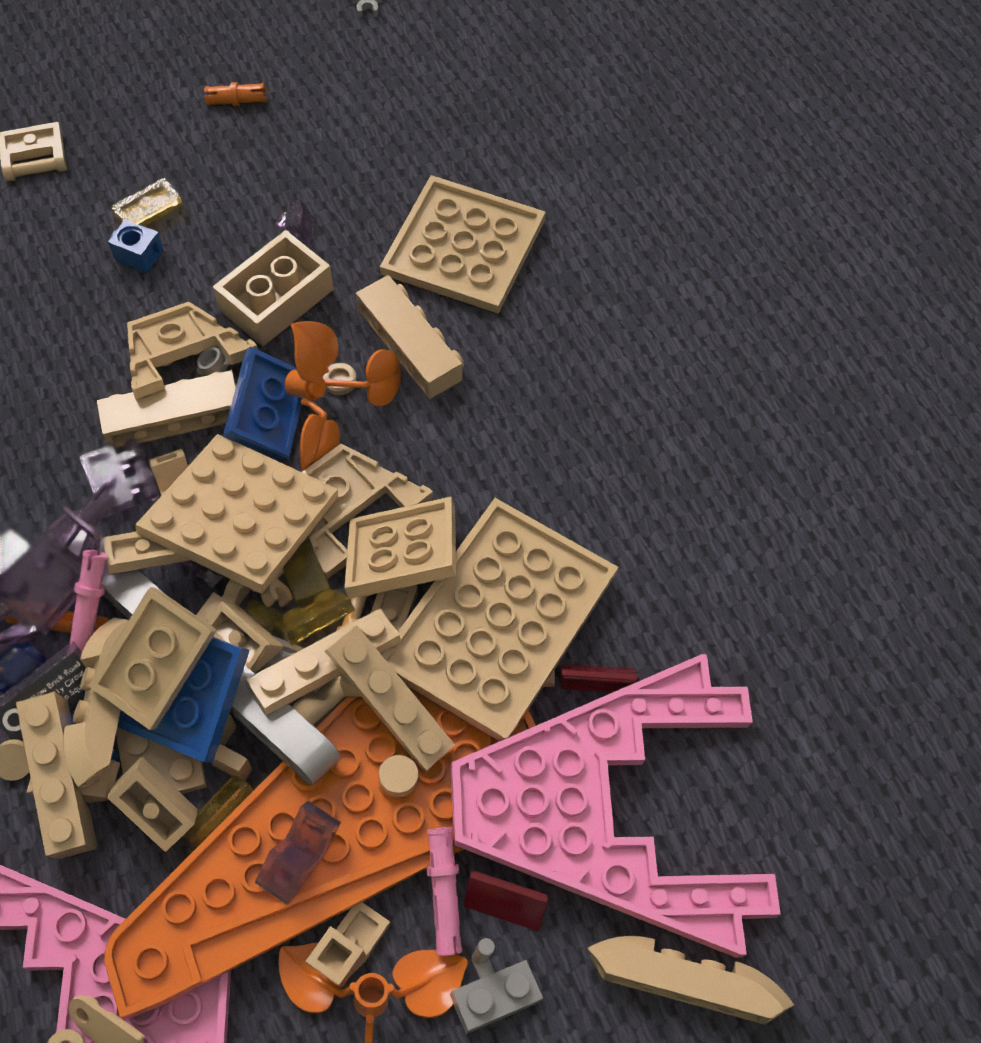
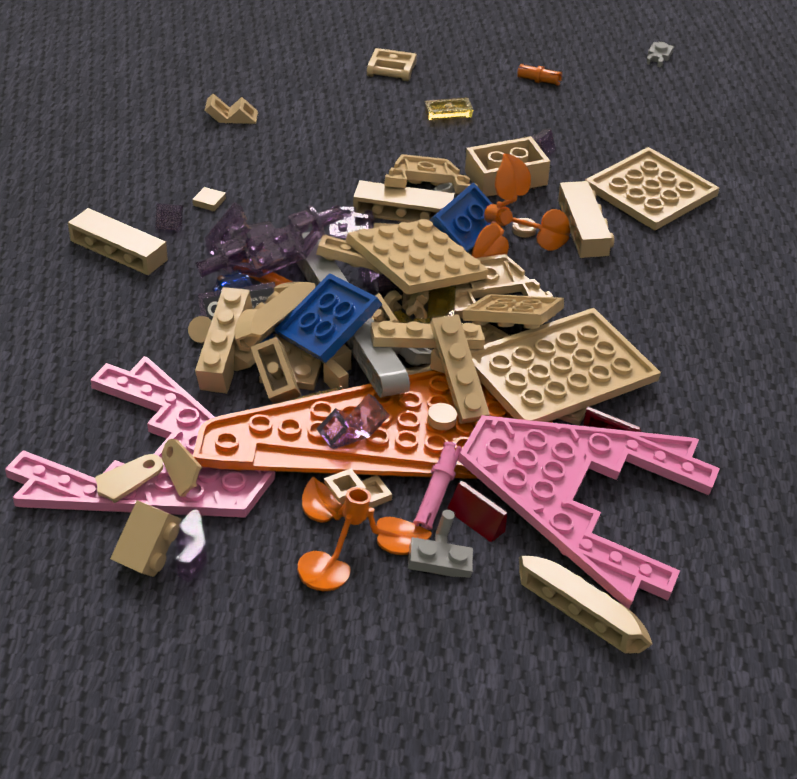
camera: 25 degrees right, 20 degrees down
(88, 591) = (298, 259): bright pink pin -> none
(135, 245) = (429, 123): blue brick -> none
(152, 658) = (319, 287): tan plate -> none

